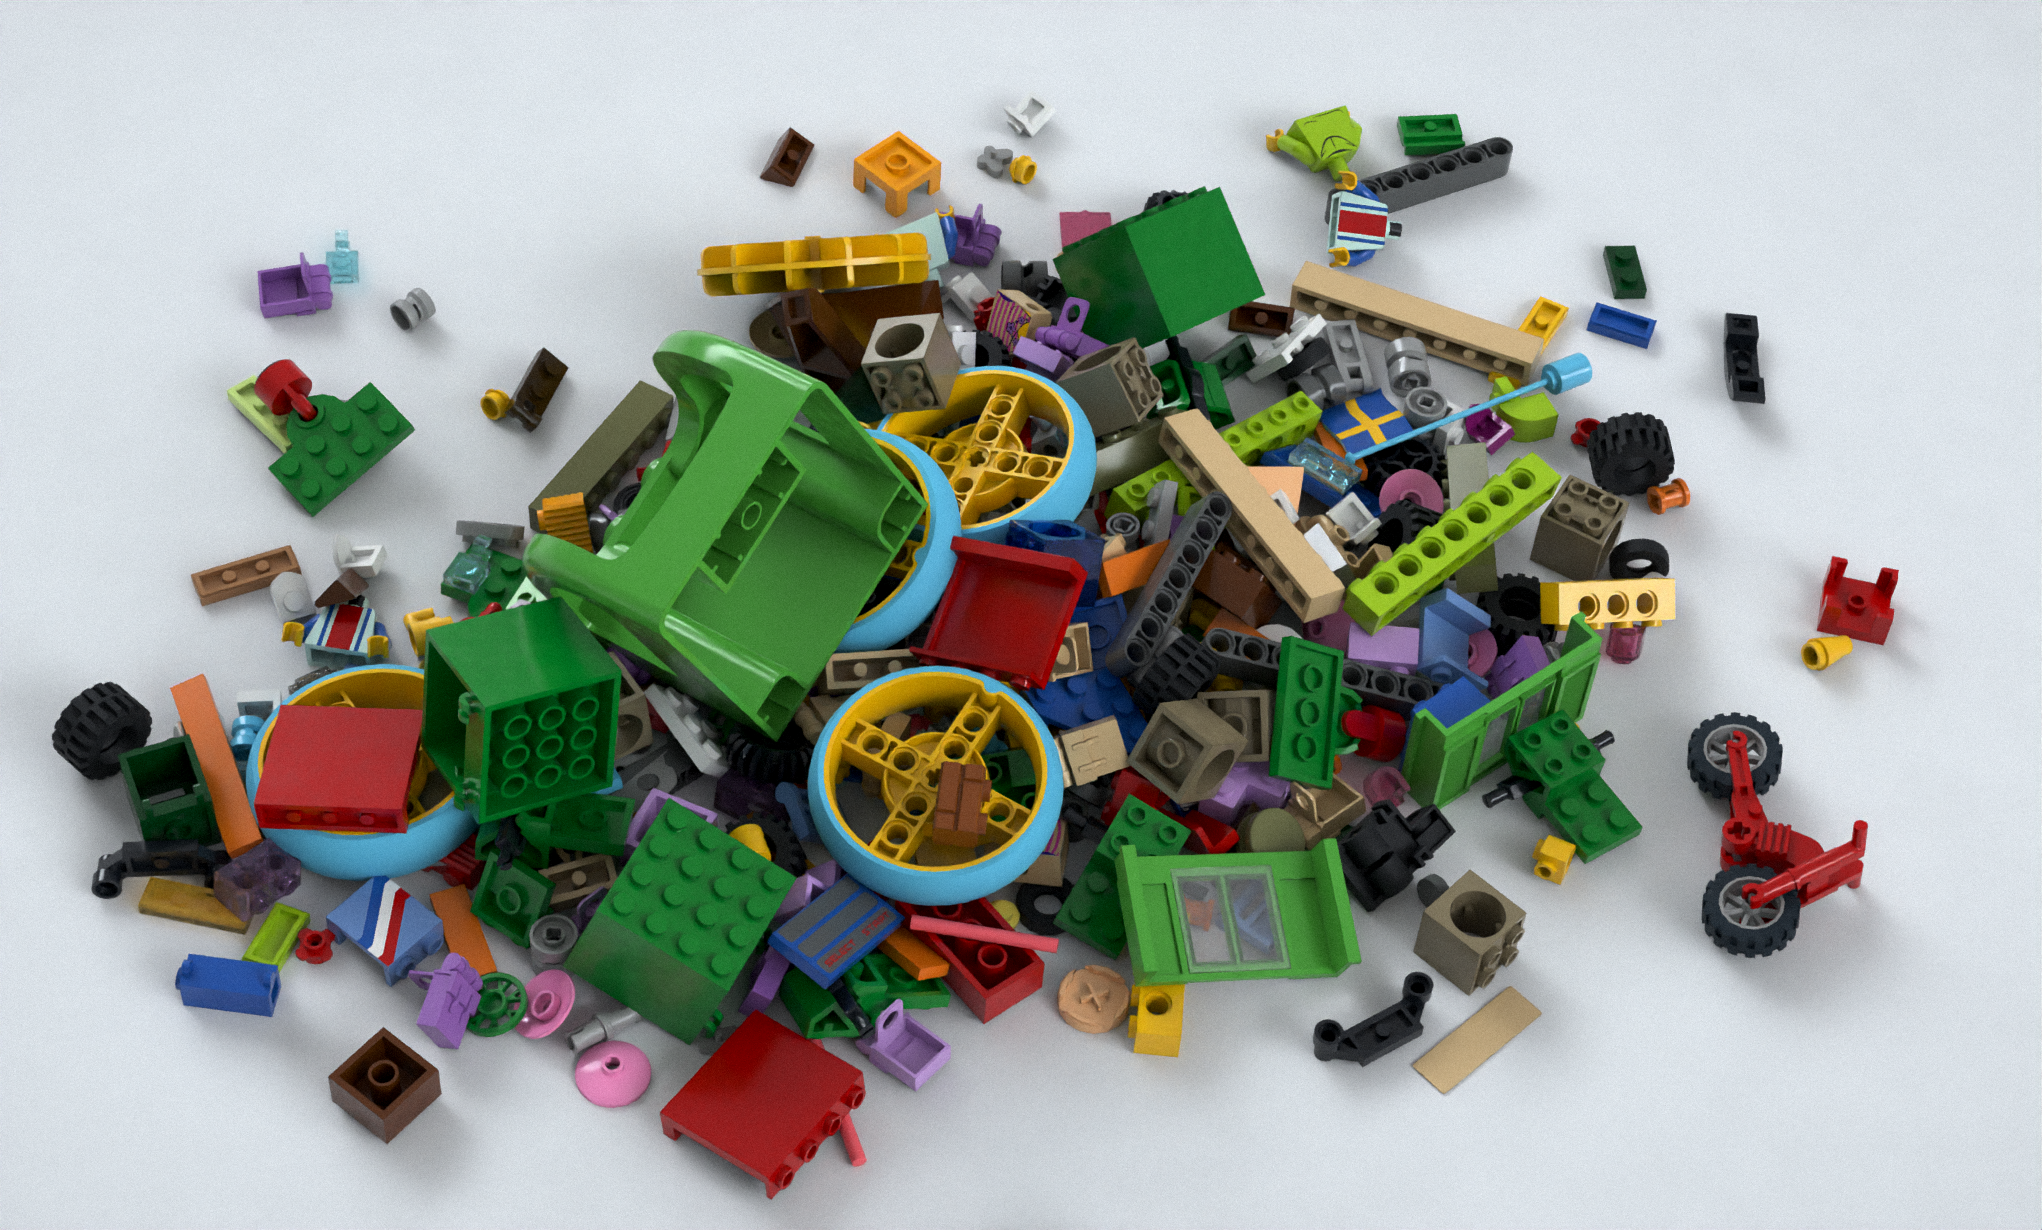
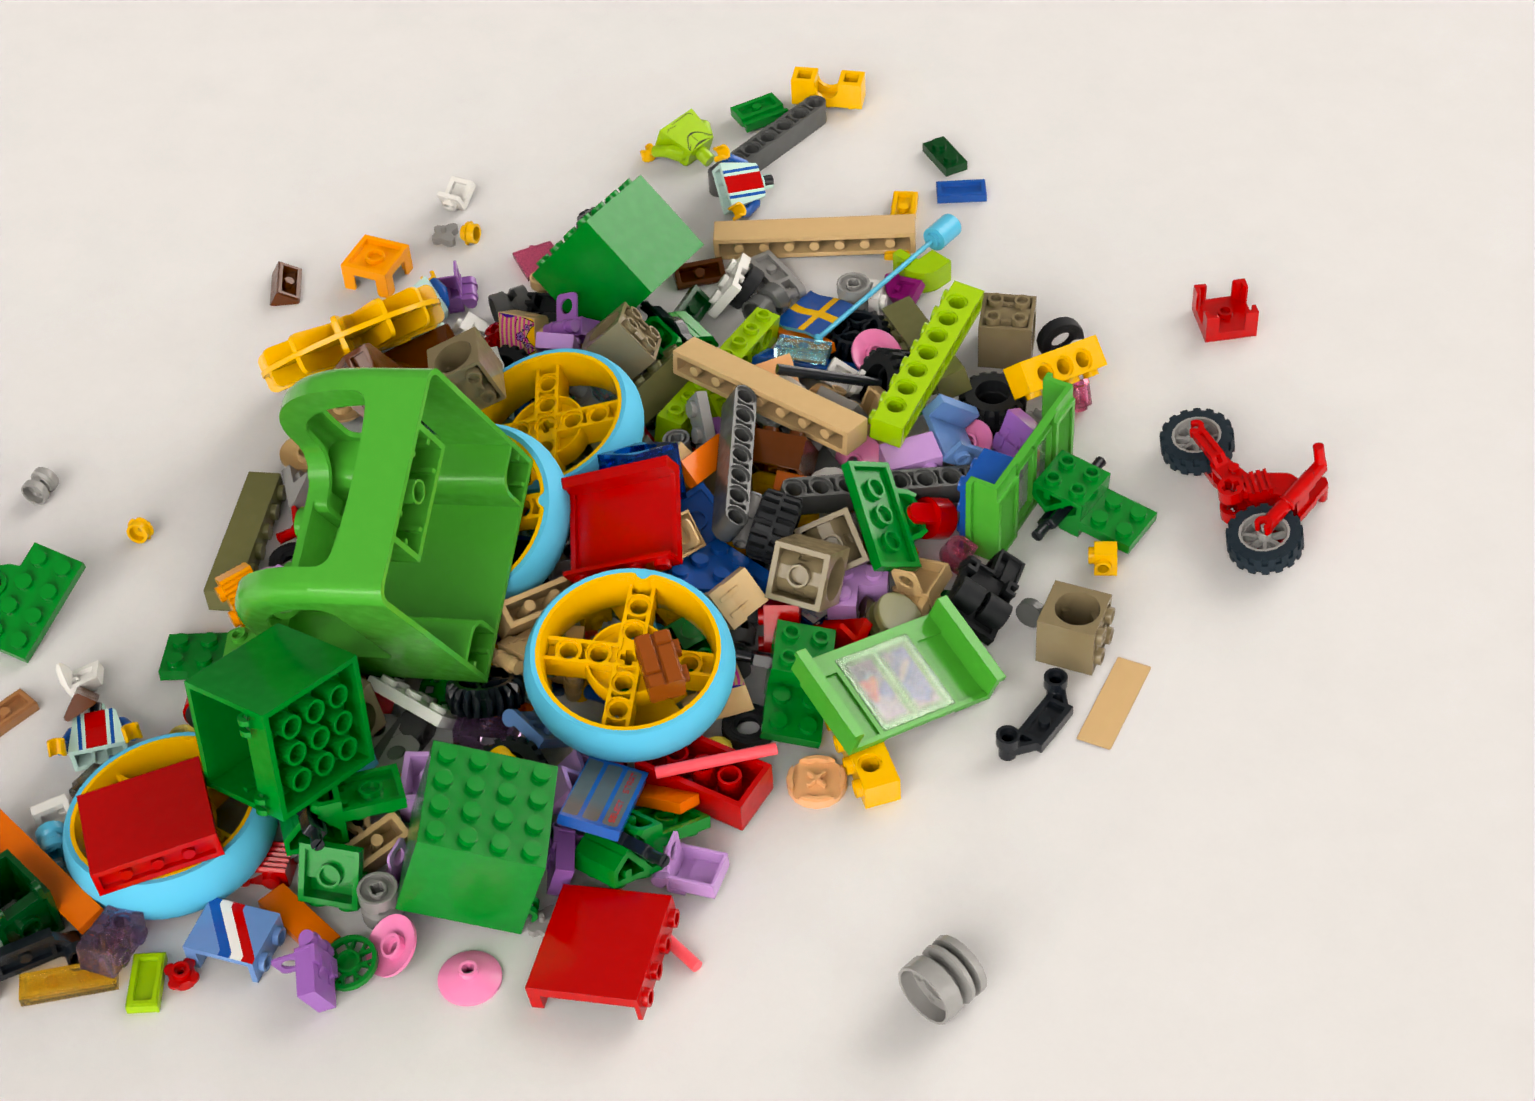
camera: 15 degrees left, 5 degrees down
(229, 985) = (124, 1030): blue brick -> none
(291, 596) = (39, 724): white plate -> none
(385, 1085) = (291, 1054): reddish brown brick -> none
(418, 623) = (163, 711): yellow piece -> none
(470, 570) = (180, 651): clear light blue plate -> none
(504, 533) = (167, 625): light grey plate -> none
(536, 389) = (167, 508): dark brown plate -> none
(601, 1028) = (444, 946): light grey pin -> none
(1331, 514) = (829, 376): none -> black bar
(1407, 365) = (823, 267): light grey wheel -> none
(1546, 147) = (847, 93): none -> yellow arch
(1583, 430) = (976, 268): red plate -> none
(1630, 454) = (1017, 266): black tyre -> none
(1668, 496) = (1055, 289): orange bush -> none
(1741, 359) = (1056, 184): black slope -> none
(1824, 651) = (1219, 352): yellow cone -> none

